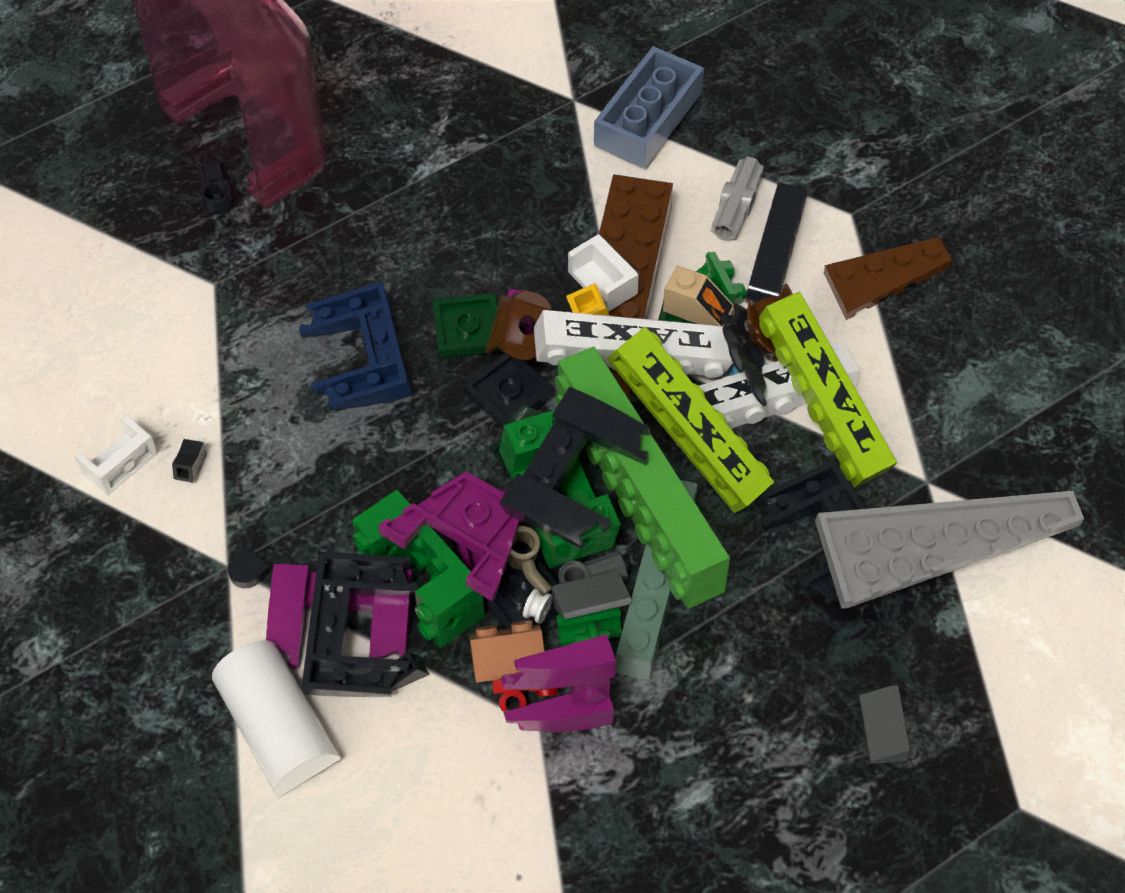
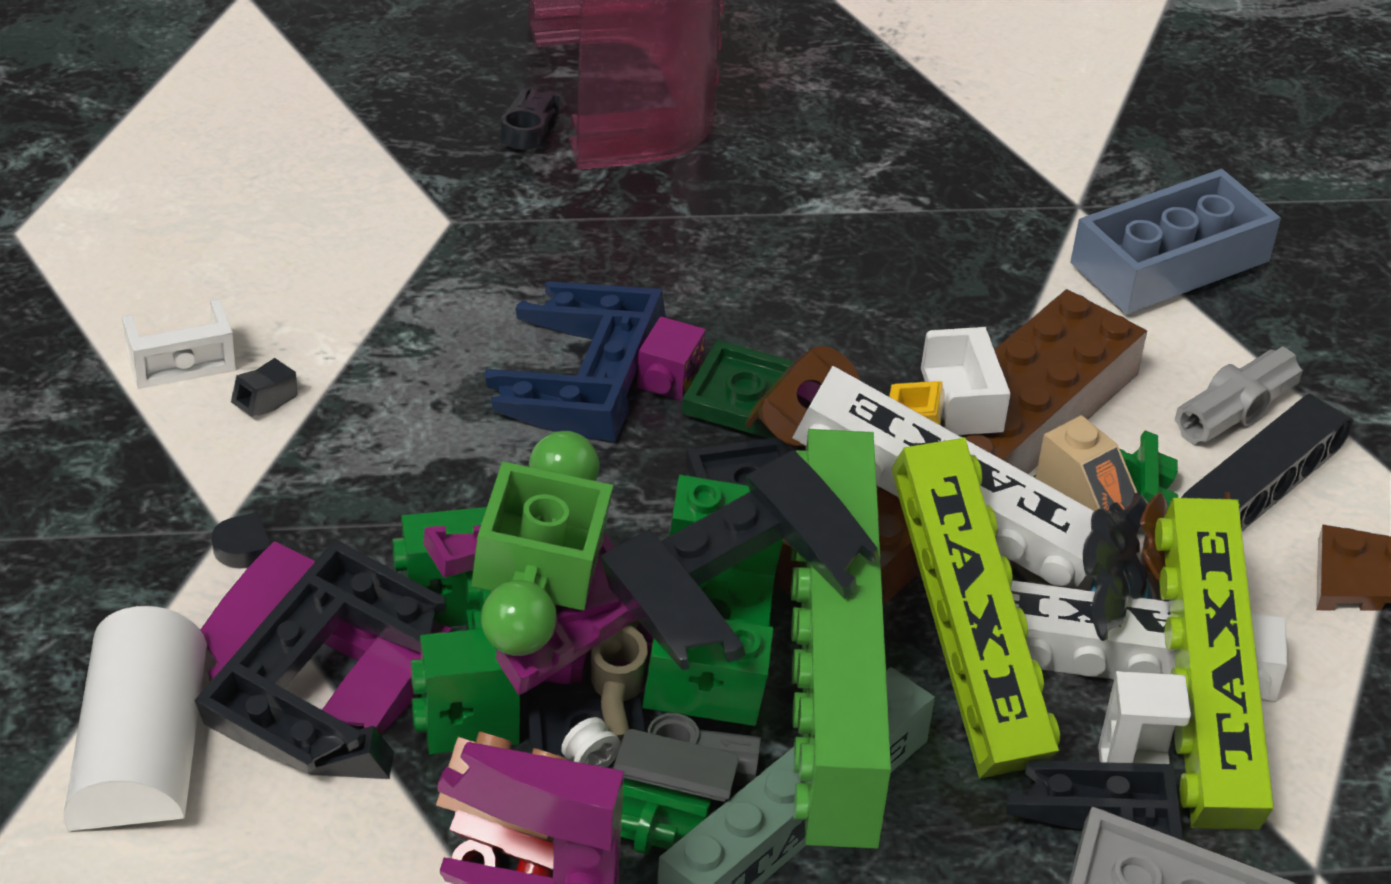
camera: 25 degrees right, 15 degrees down
(413, 325) = (670, 358): none -> magenta brick
(456, 504) = (540, 541): none -> bright green brick
(805, 444) = (1143, 717): none -> white panel

